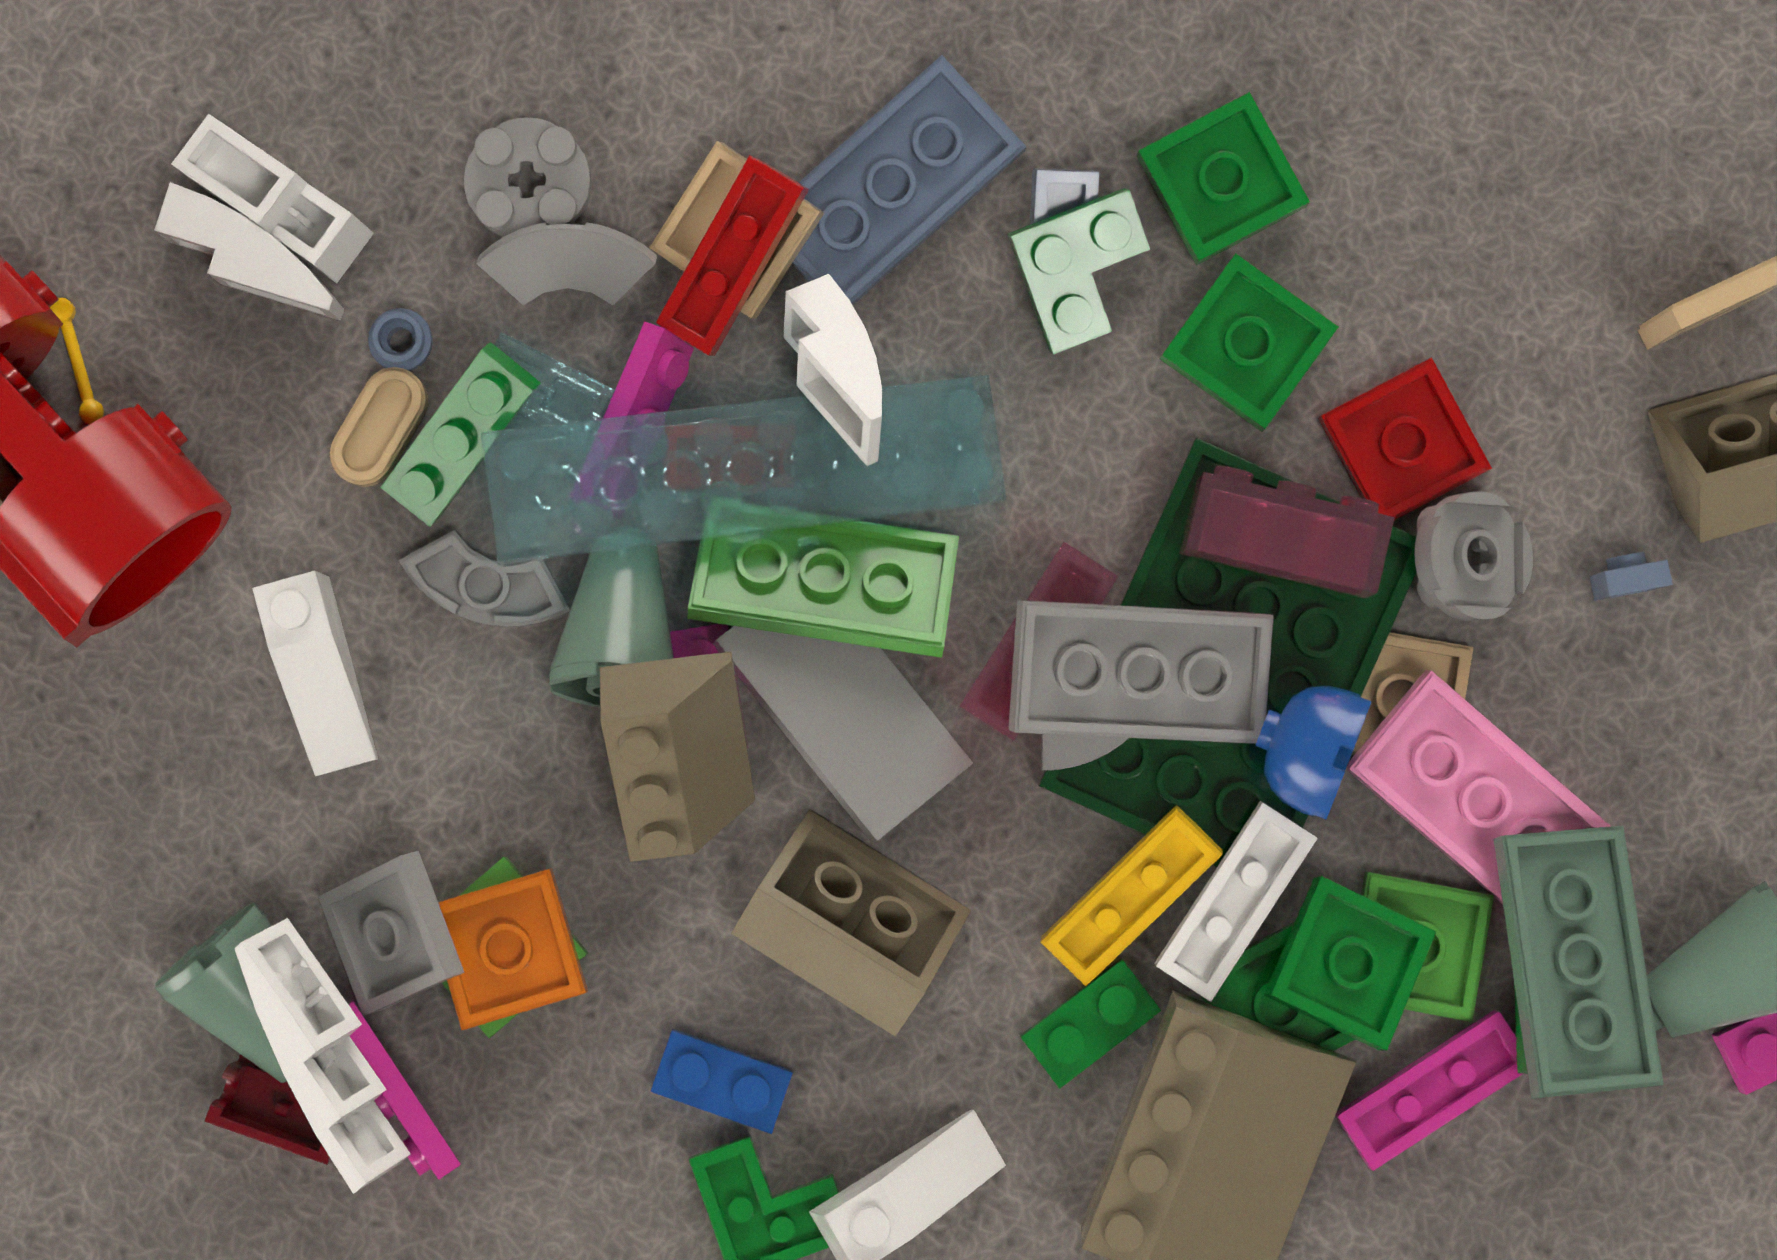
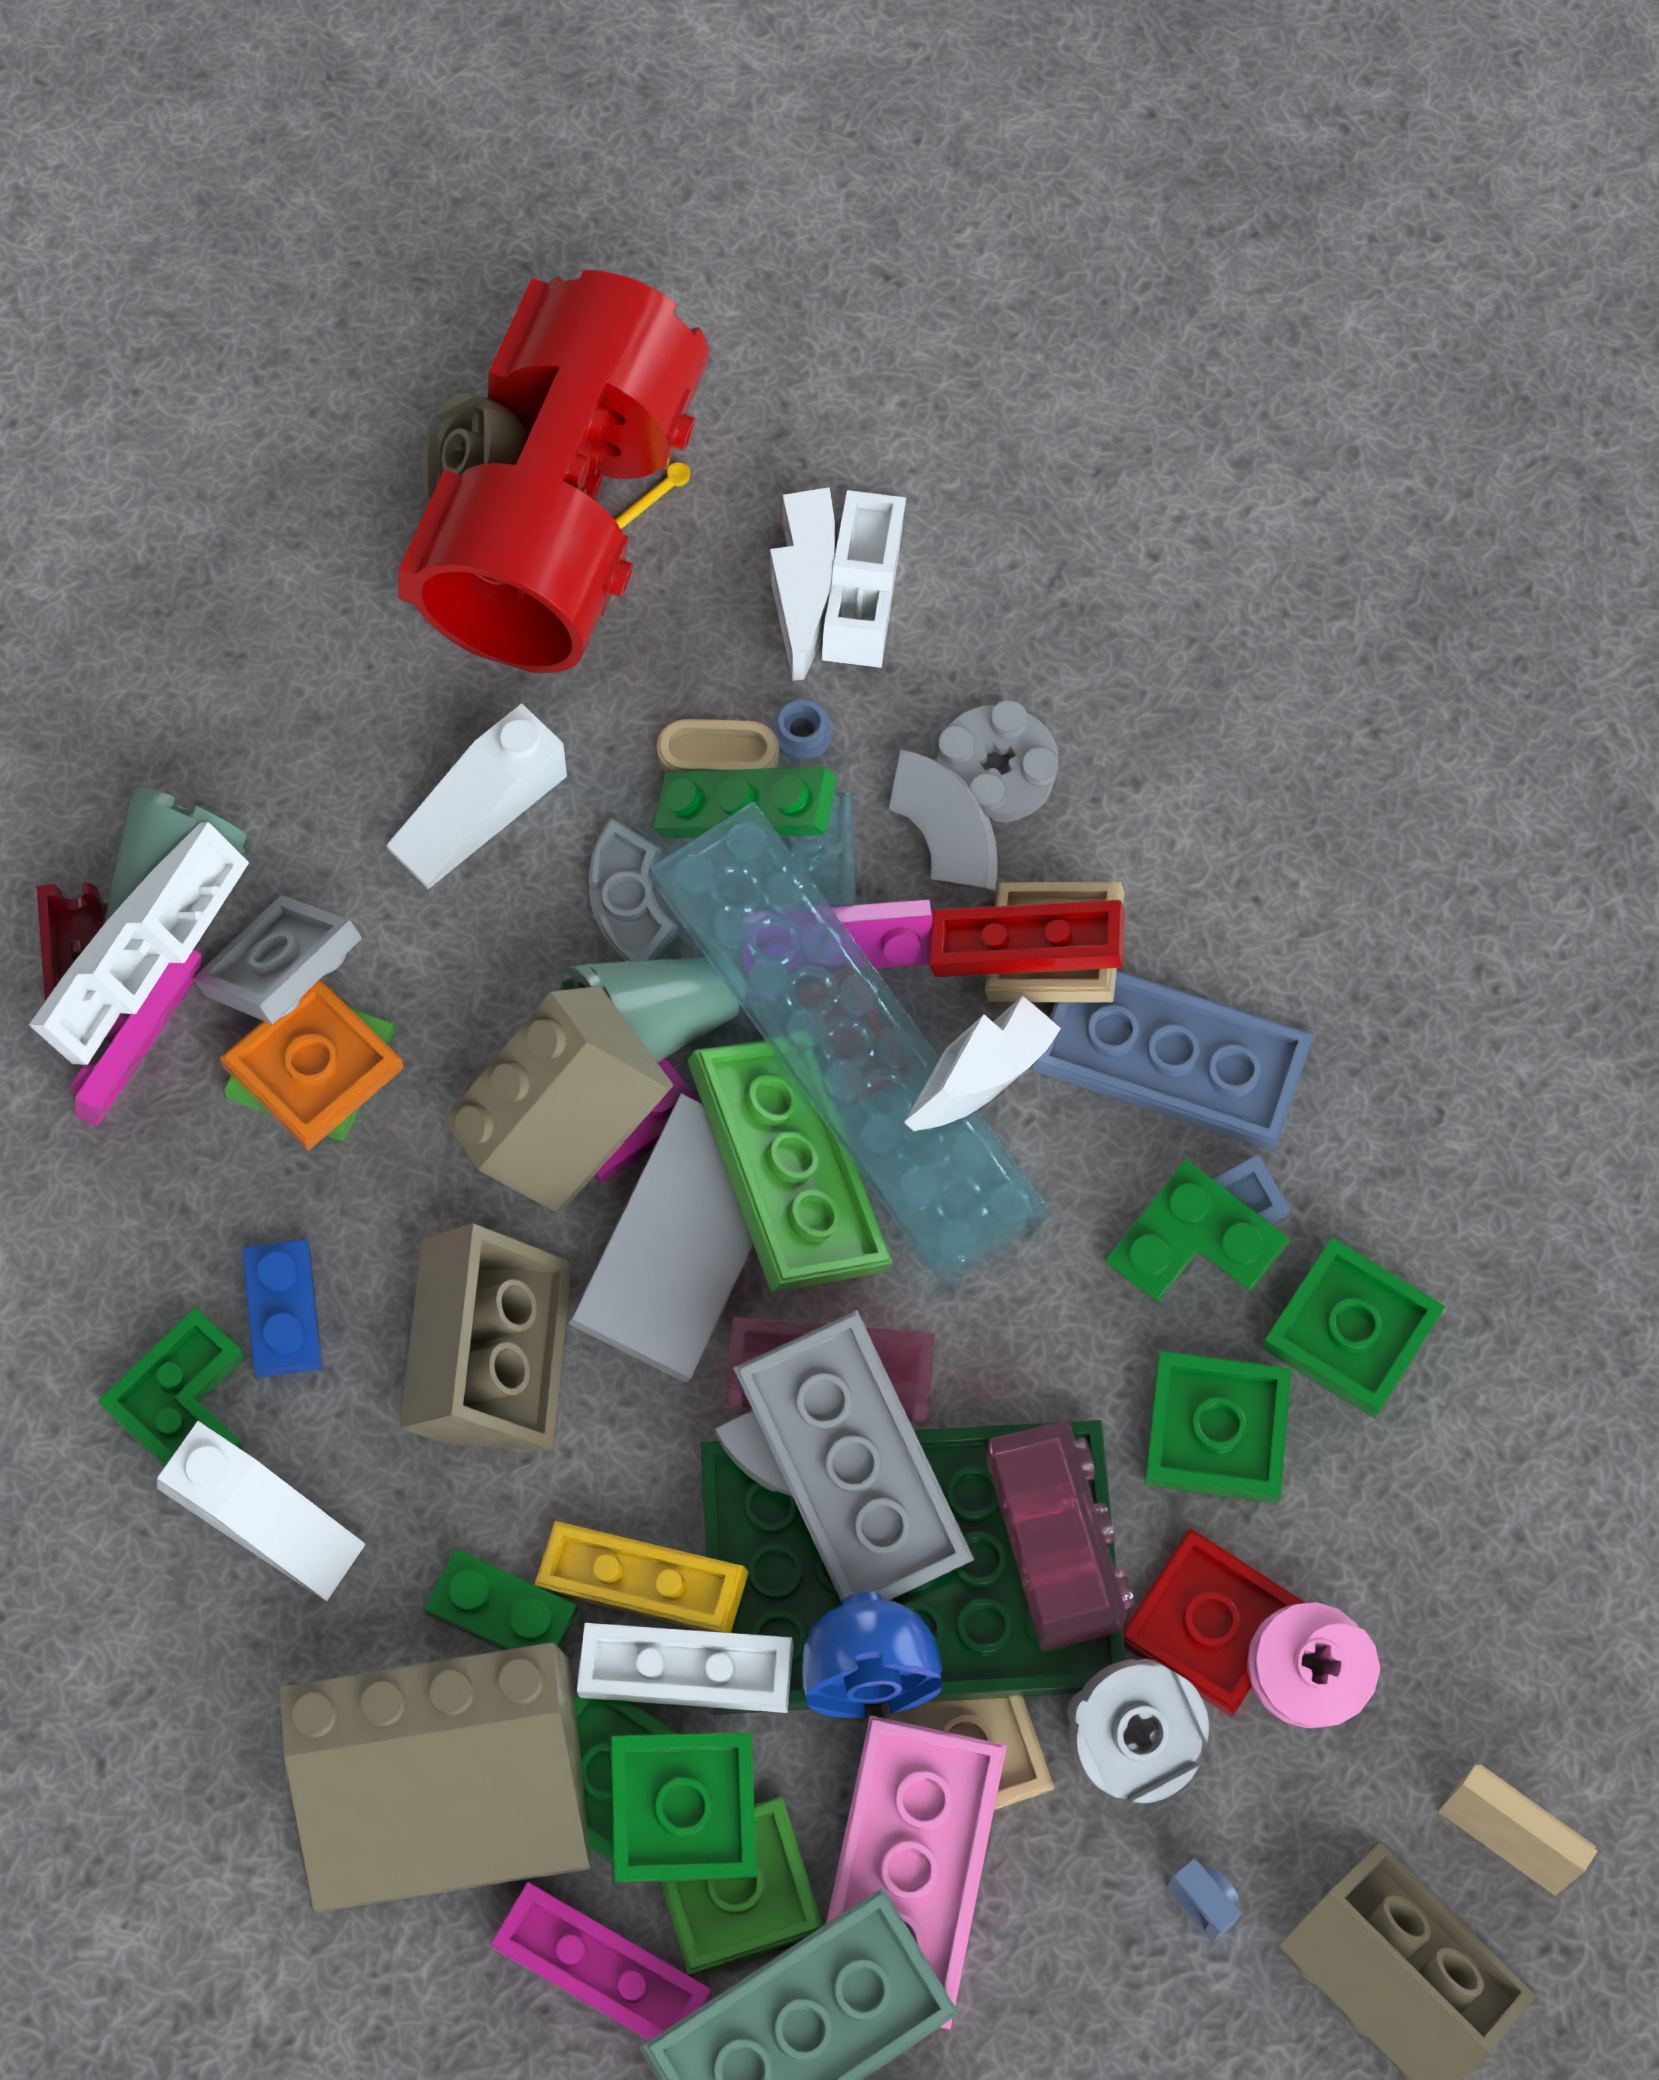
camera: 60 degrees right, 20 degrees down
(1520, 387) = (1334, 1641): none -> bright pink piece

